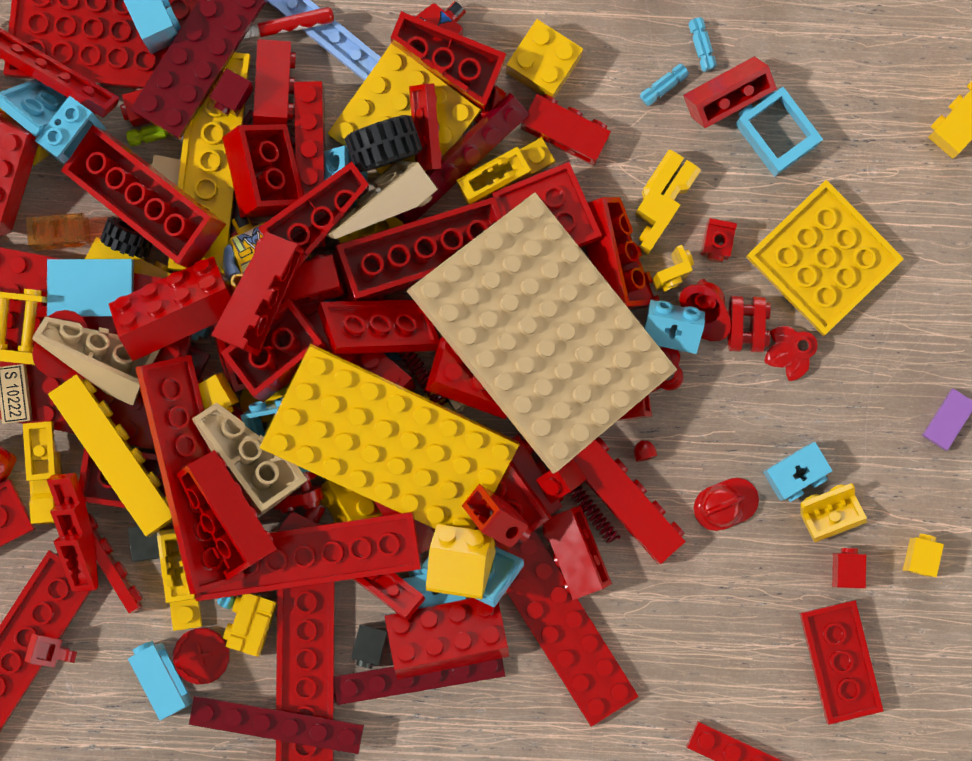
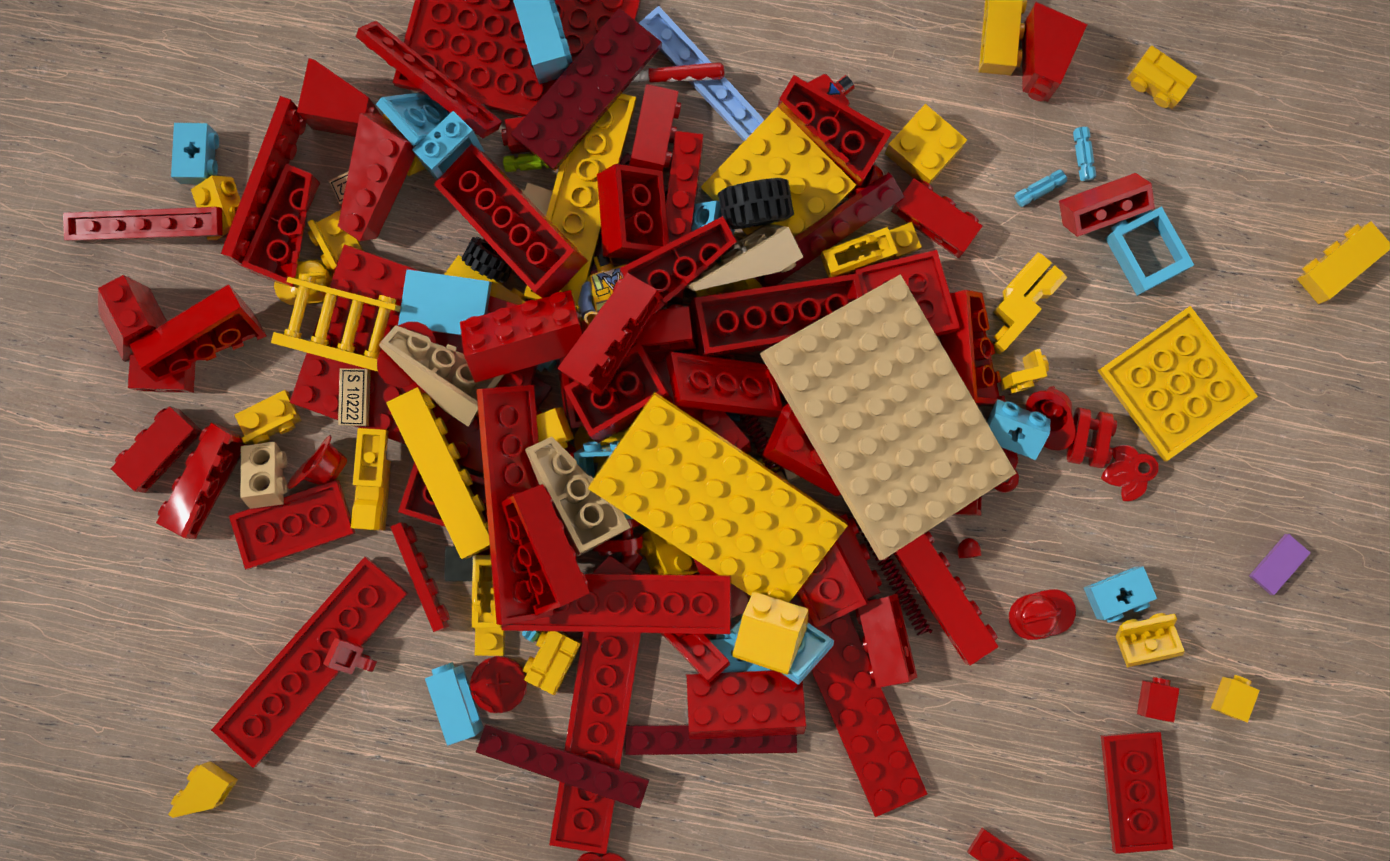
camera: 20 degrees right, 0 degrees up
(58, 231) = (422, 244): clear orange brick -> none
(75, 537) = (392, 550): red slope -> none
(231, 93) = (612, 132): dark red brick -> none
(369, 646) = (666, 701): pearl dark grey brick -> none
(424, 115) = (801, 181): red plate -> none
(503, 525) = (822, 604): red torso -> none
(562, 481) = (884, 570): red brick -> none
(721, 228) = (1063, 355): red brick -> none

